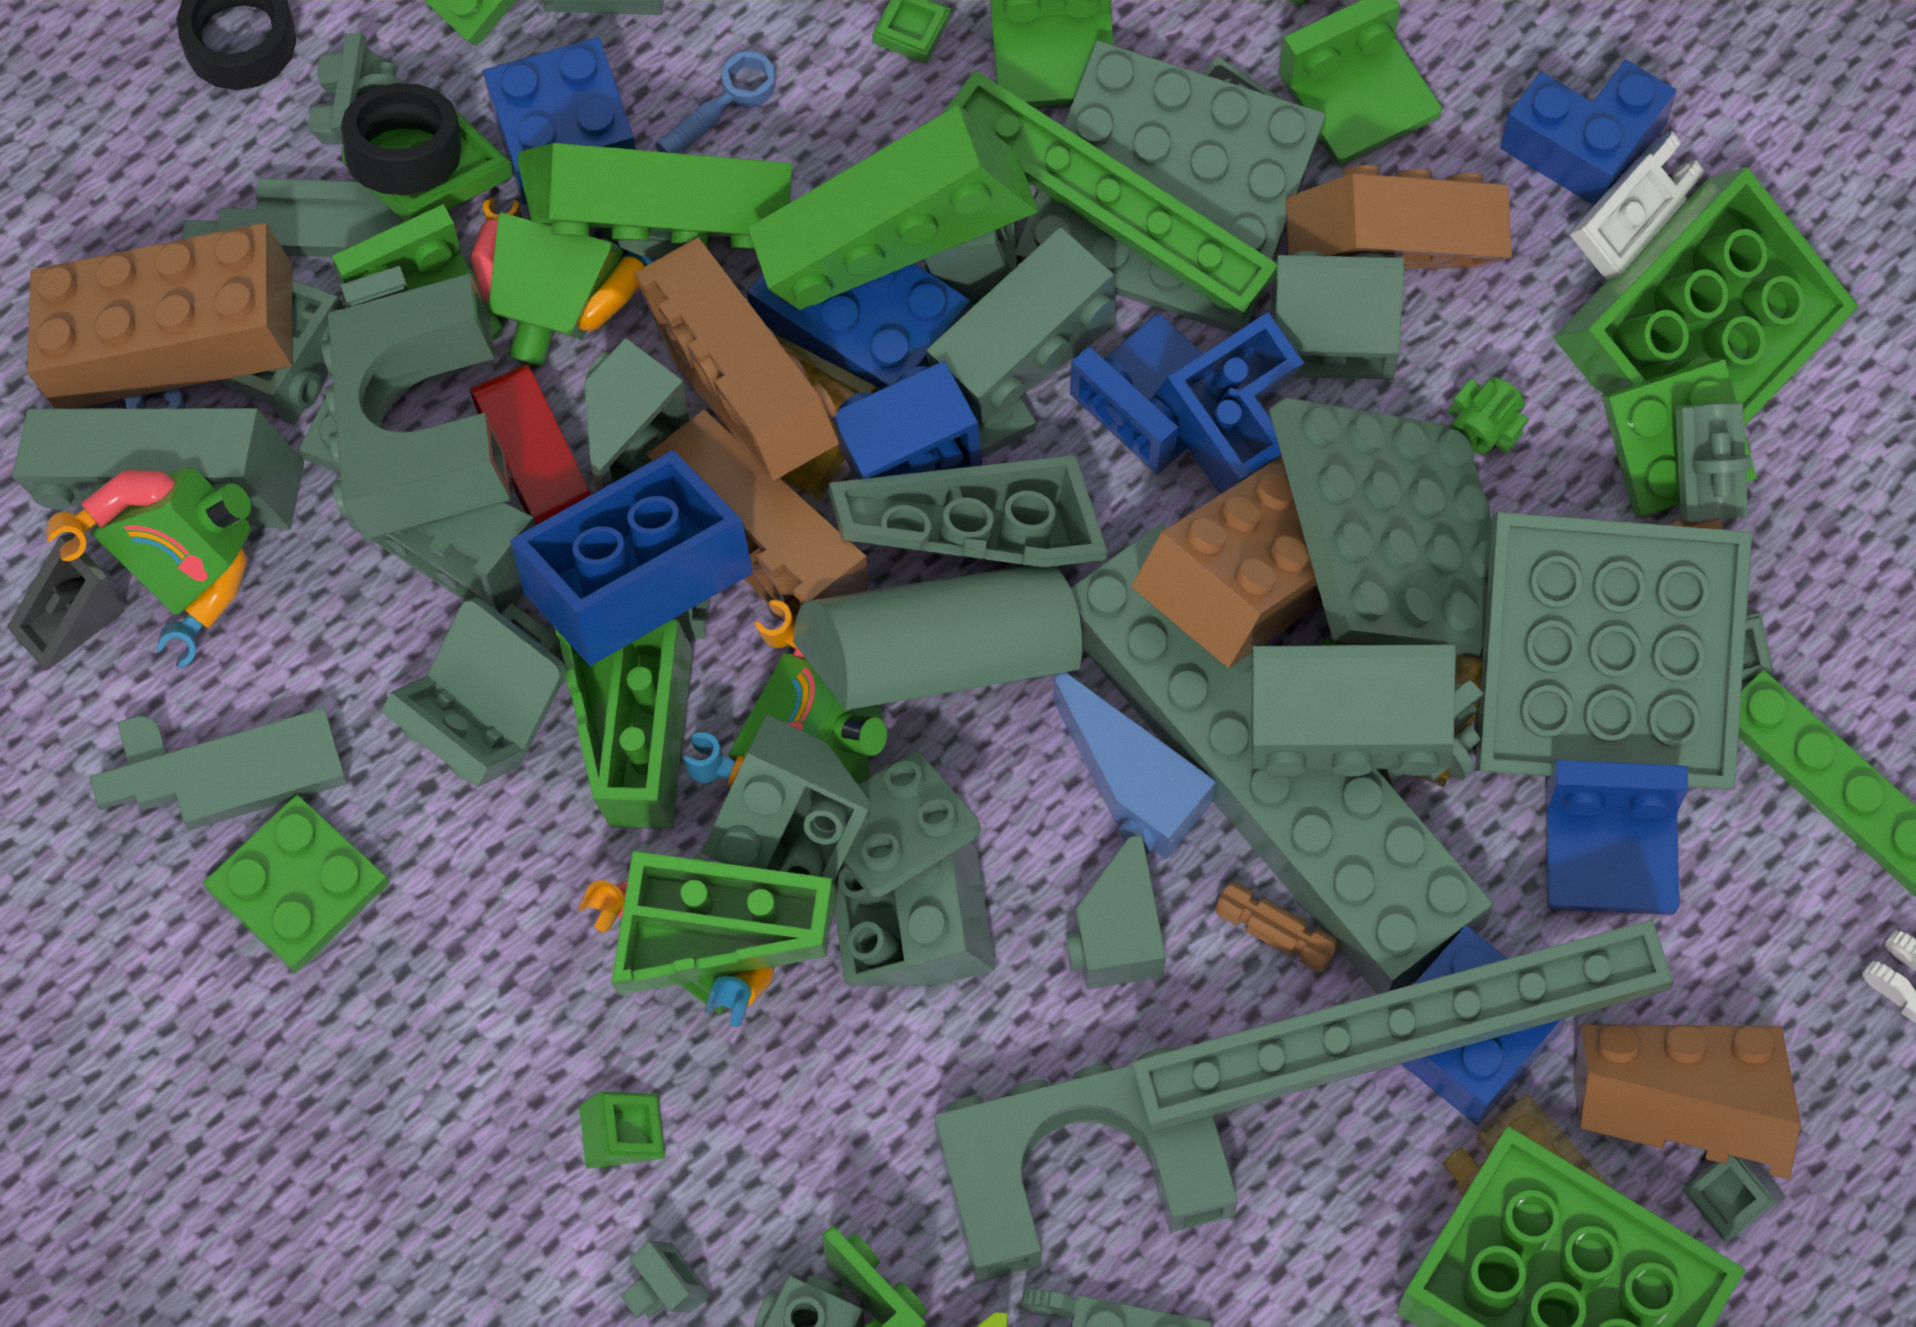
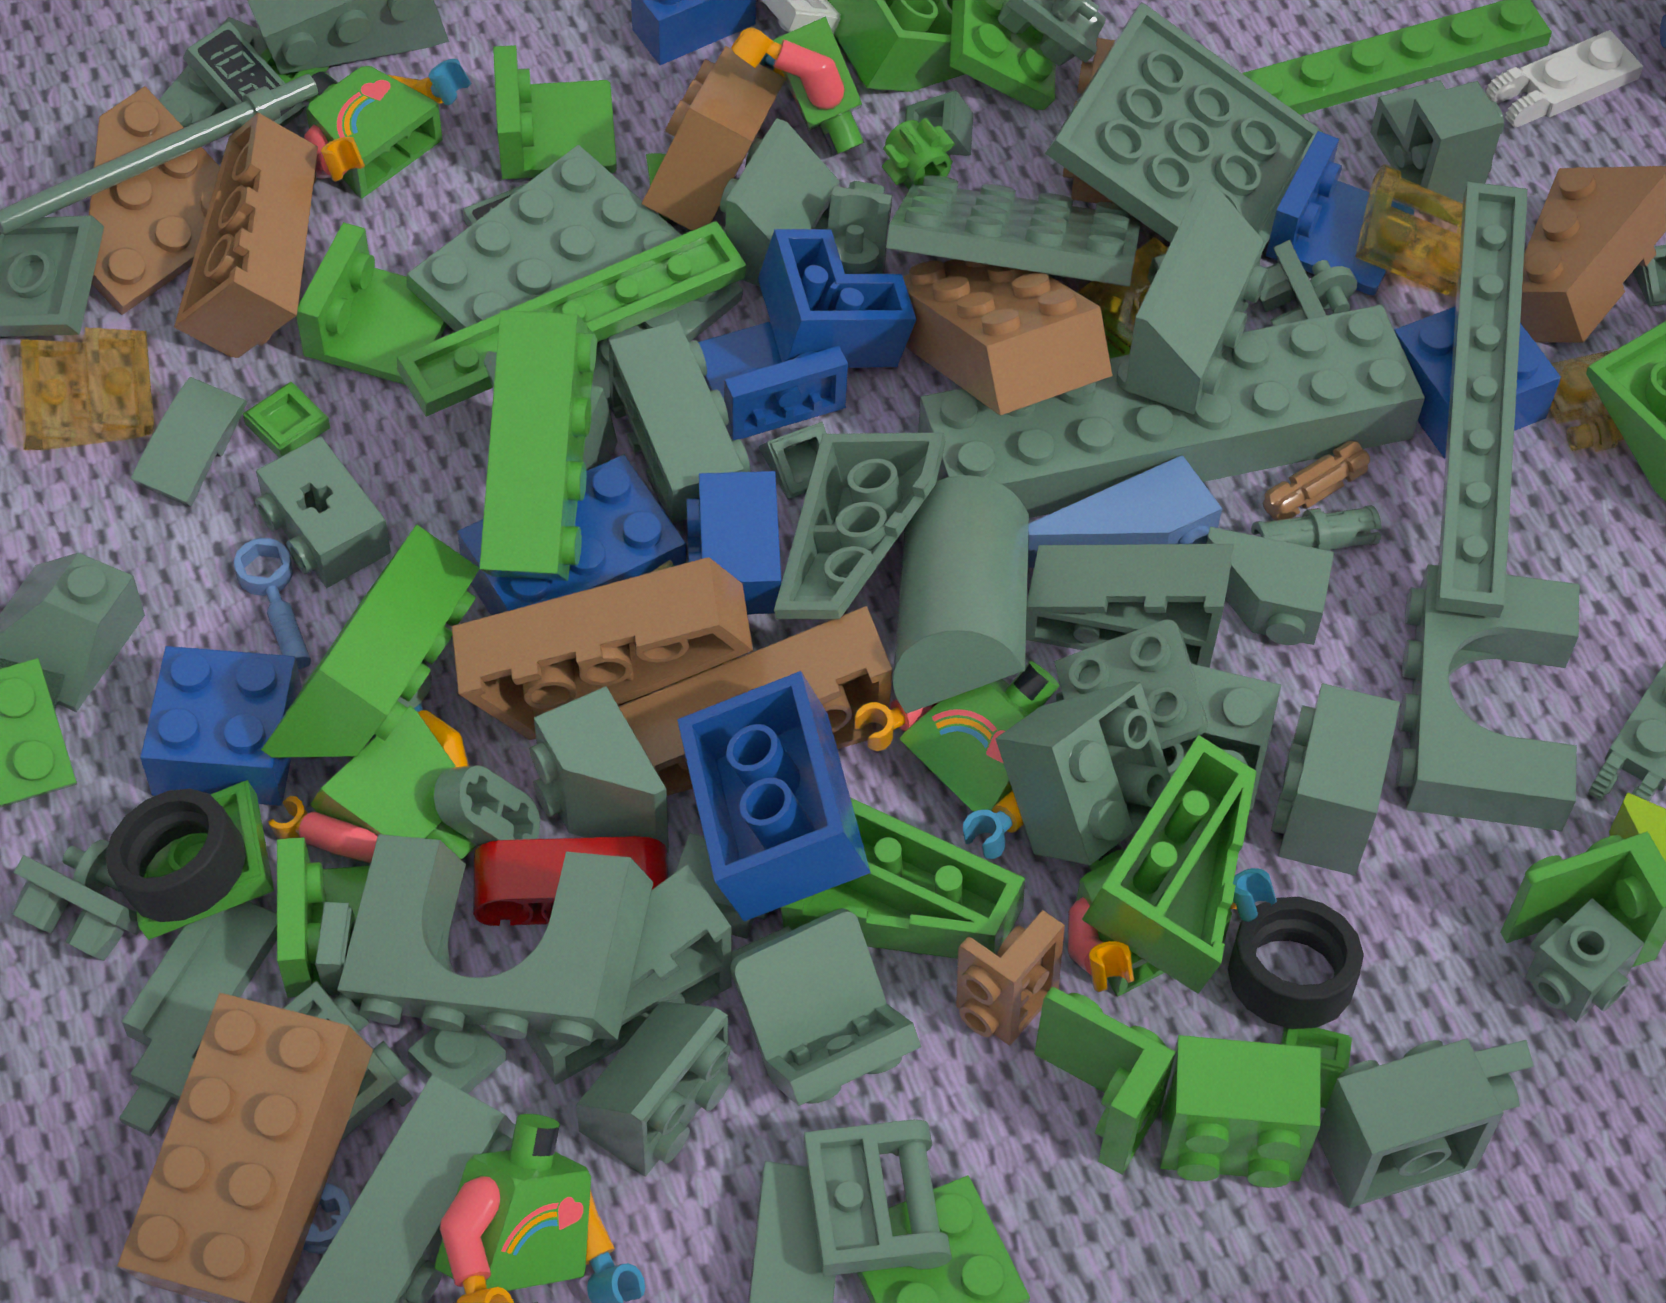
camera: 70 degrees left, 10 degrees down
(303, 785) = (852, 1199): none -> sand green plate
(357, 597) = (658, 1085): none -> sand green slope
(503, 981) = (1117, 1059): none -> bright green bracket
(511, 1055) = (1240, 1110): none -> bright green brick
(546, 357) = (491, 796): none -> sand green beam
(561, 1212) = (1408, 1121): none -> sand green brick
(567, 838) = (1008, 989): none -> medium nougat bracket
(693, 1123) = (1287, 1002): none -> black tyre
(815, 95) = (322, 513): none -> sand green brick
(901, 1040) = (1335, 778): none -> sand green brick
(1031, 797) = (1106, 591): none -> sand green wedge
(1093, 453) = (794, 458): none -> sand green slope
(1208, 944) = (1325, 530): none -> sand green pin
(1346, 382) = (860, 226): none -> sand green hips
(1503, 835) = (1290, 282): none -> sand green hips
(1516, 270) = (815, 77): none -> torso
(1556, 427) = (951, 114): none -> sand green slope
(1617, 897) = (1406, 242): none -> clear yellow plate
(1769, 897) = (1439, 135): none -> sand green brick

